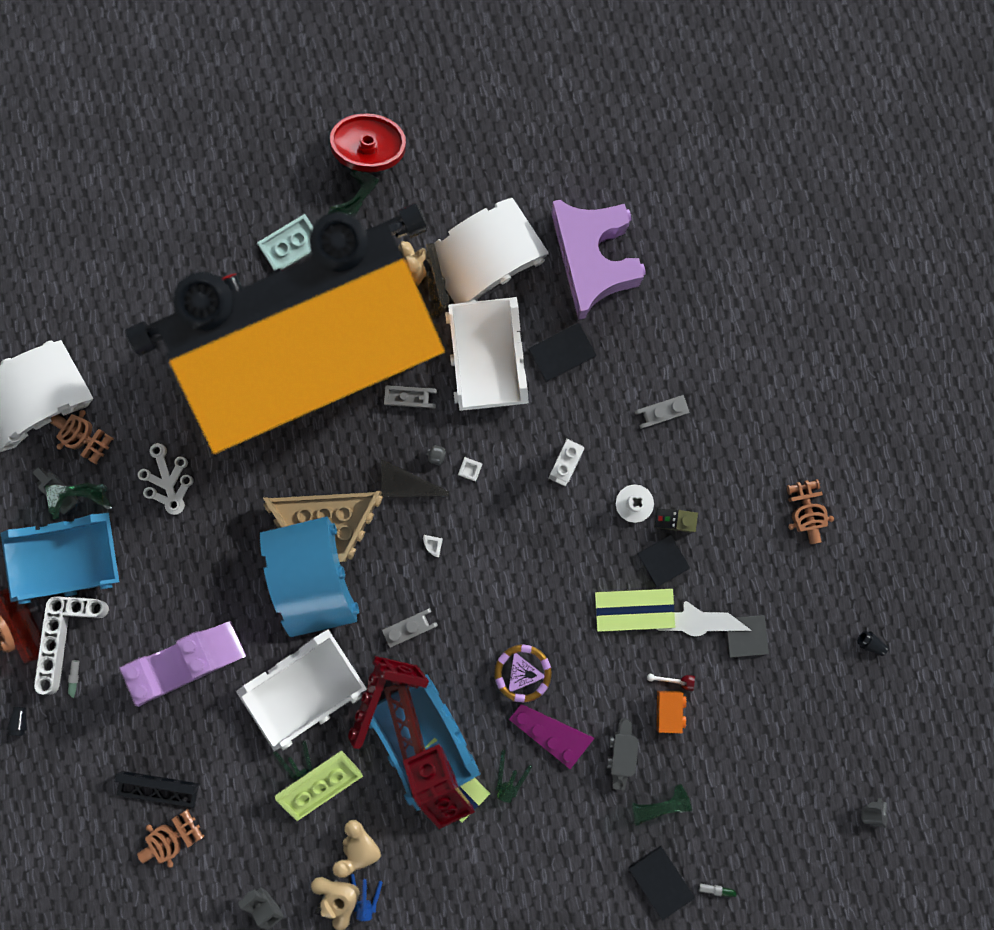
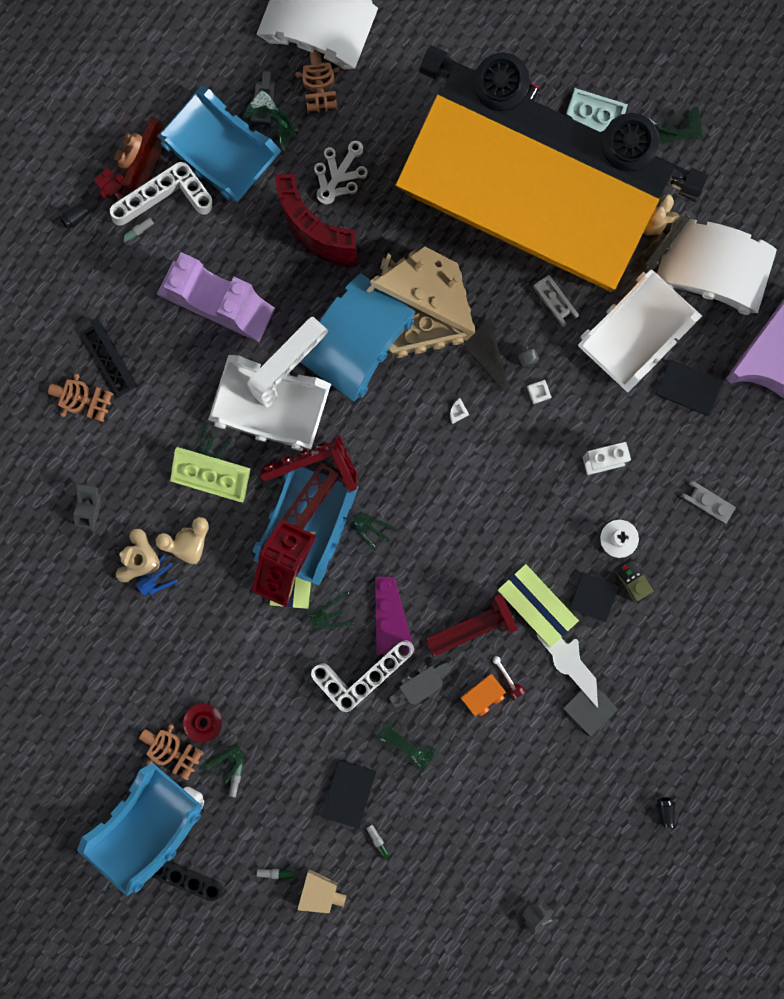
camera: 55 degrees right, 0 degrees up
(16, 672) = (110, 184): none -> dark red piece
(211, 539) = (322, 240): none -> dark red panel
(279, 652) = (265, 380): none -> white beam
(316, 486) = (430, 285): none -> tan piece
(367, 142) = (724, 104): red dish -> none
(408, 628) = (379, 445): light grey hinge -> none
(459, 694) = (363, 523): none -> clear green plant
(523, 673) = (419, 558): piece -> none
(584, 795) = (366, 680): none -> white beam
(611, 676) = (474, 627): none -> dark red bracket
(812, 529) = (716, 693): nougat torso -> none

